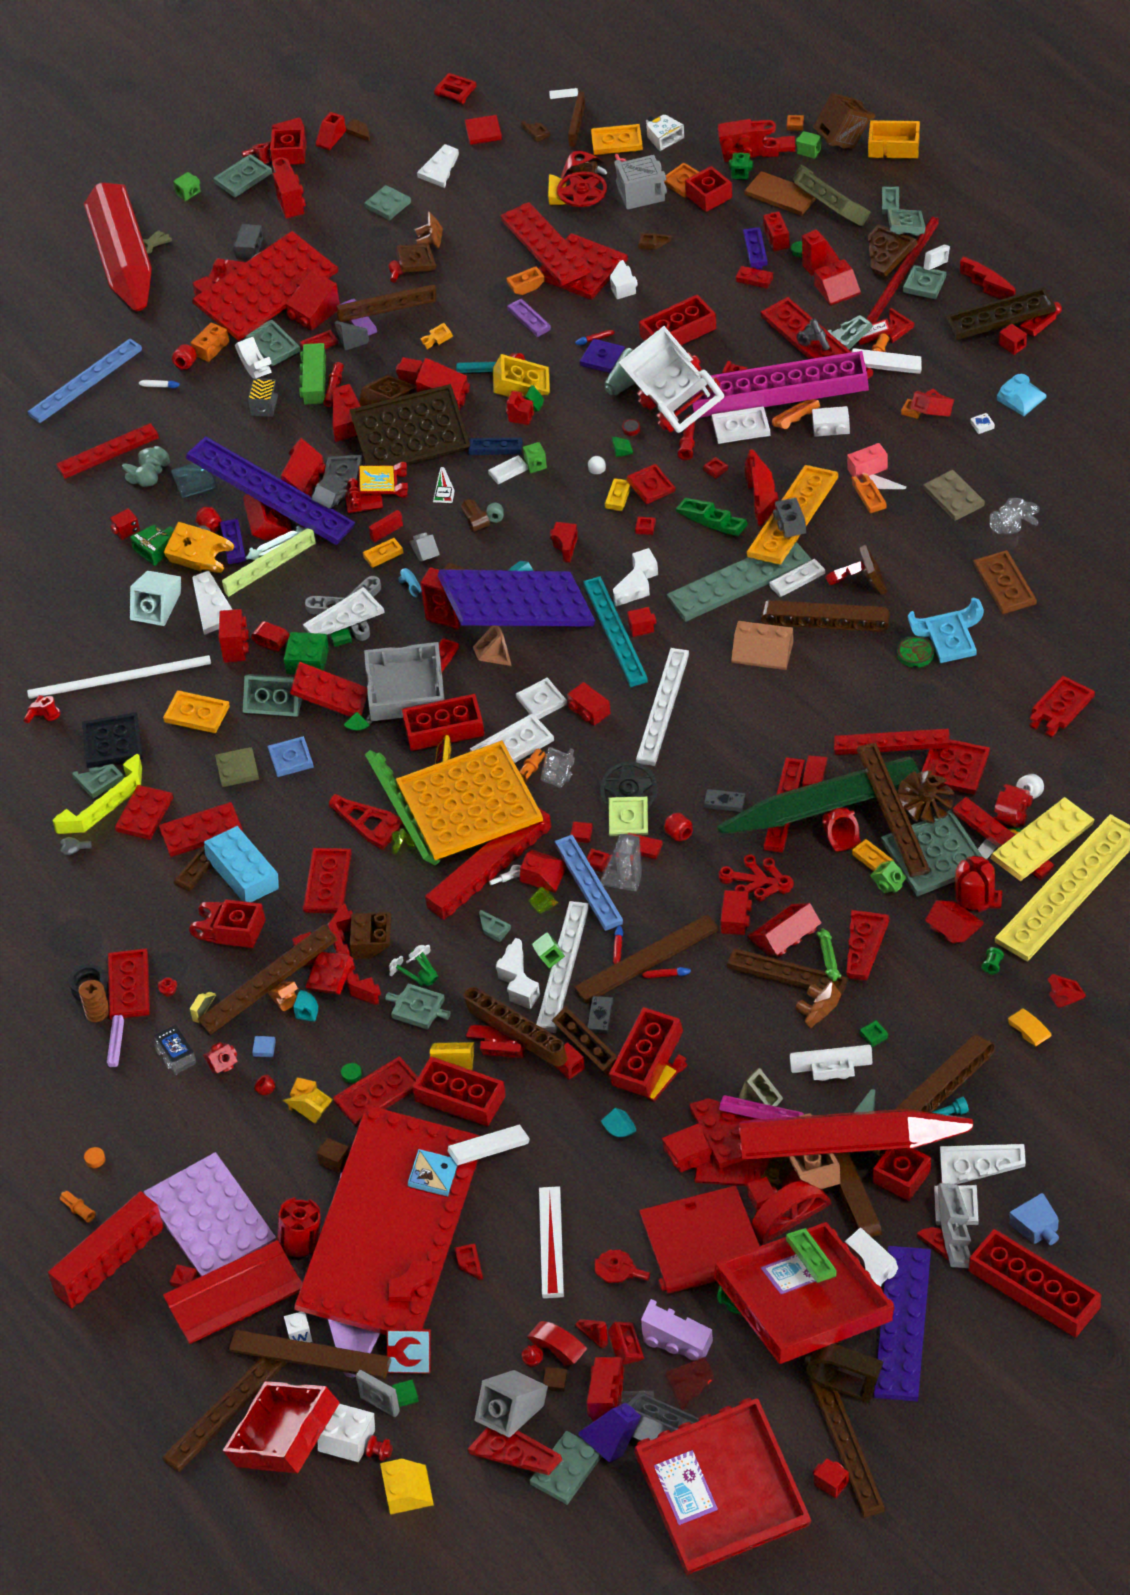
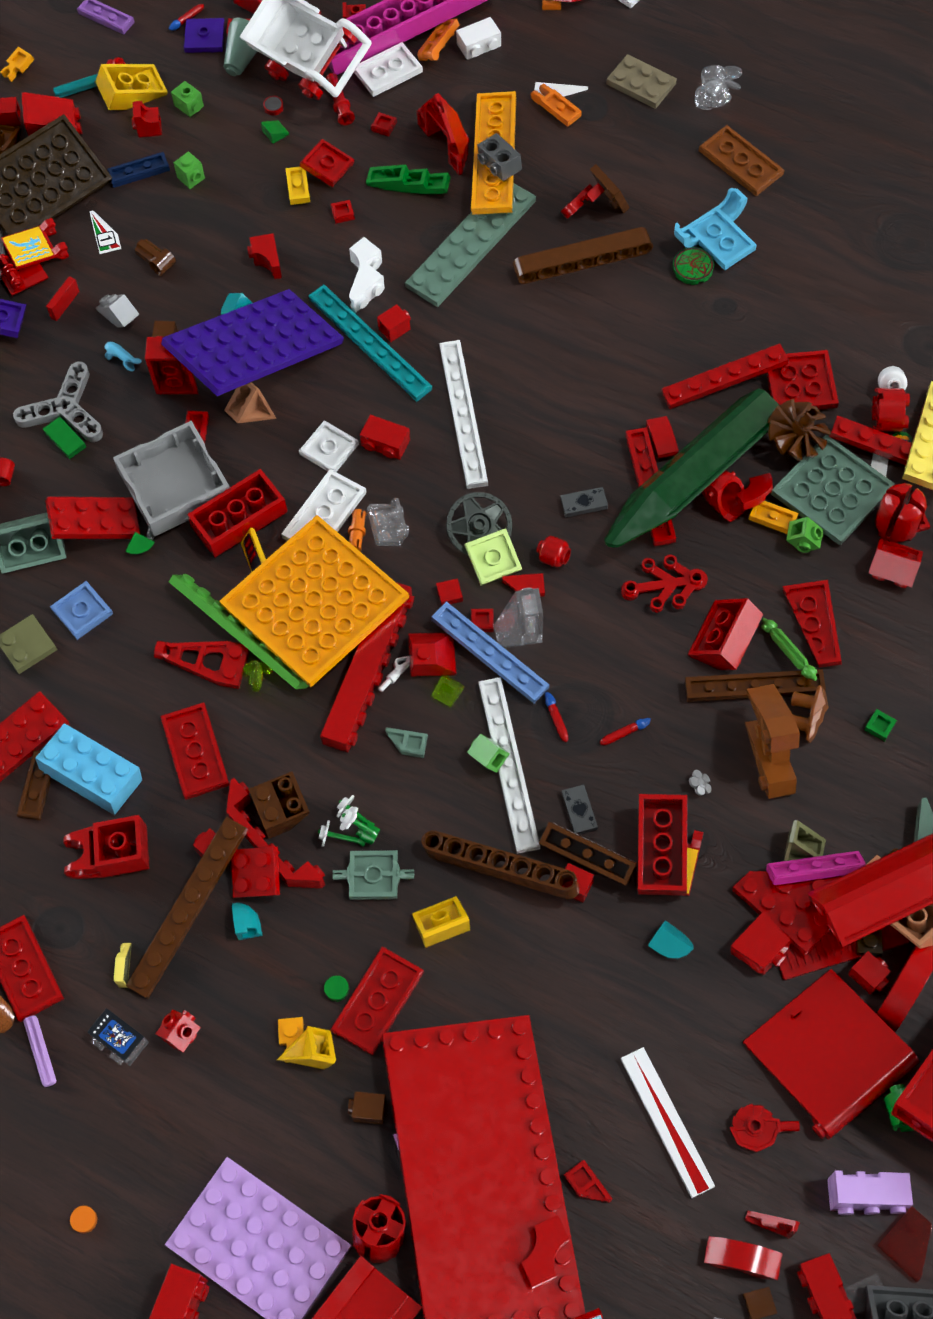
camera: 25 degrees left, 15 degrees up
(77, 1206) = (92, 1296): orange axle -> none
(167, 990) = (74, 959): red plate -> none
(264, 1046) = (219, 992): medium blue tile -> none
(268, 1086) = (249, 1042): red piece -> none
(284, 995) = (214, 916): orange slope -> none
(306, 648) = (43, 478): green brick -> none
(347, 612) = (67, 417): white wing -> none
(383, 552) = (73, 330): light orange plate -> none
(432, 1173) = (499, 1091): tile -> none
(459, 1091) = (475, 970): red brick -> none
(488, 1144) = (540, 1027): white tile -> none
(495, 512) = (175, 245): sand green piece -> none
(495, 1042) = (481, 887): red plate -> none
(508, 469) = (165, 192): white tile -> none
(511, 969) = (457, 790): white arch -> none
(532, 1356) = (720, 1283): red plate -> none
(534, 395) = (154, 100): green slope -> none
(561, 402) = (187, 99): none -> bright green brick
(596, 465) = (258, 159): white piece -> none
(625, 1342) = (814, 1222): red slope -> none
(646, 958) = (594, 722): reddish brown tile -> none
(705, 1026) = (700, 783): none -> light grey plant
(735, 912) = (664, 632): red brick -> none
(762, 645) = (535, 309): nougat slope -> none
(773, 995) = (772, 739): none -> dark orange wedge
(797, 578) = (530, 221): white tile -> none
(831, 1062) = (859, 779): white bracket -> none
(865, 834) = (757, 491): none -> red tile
(867, 460) = (539, 70): coral brick -> none
(893, 810) = (776, 457): reddish brown tile -> none
(1061, 705) = (870, 277): red tile -> none

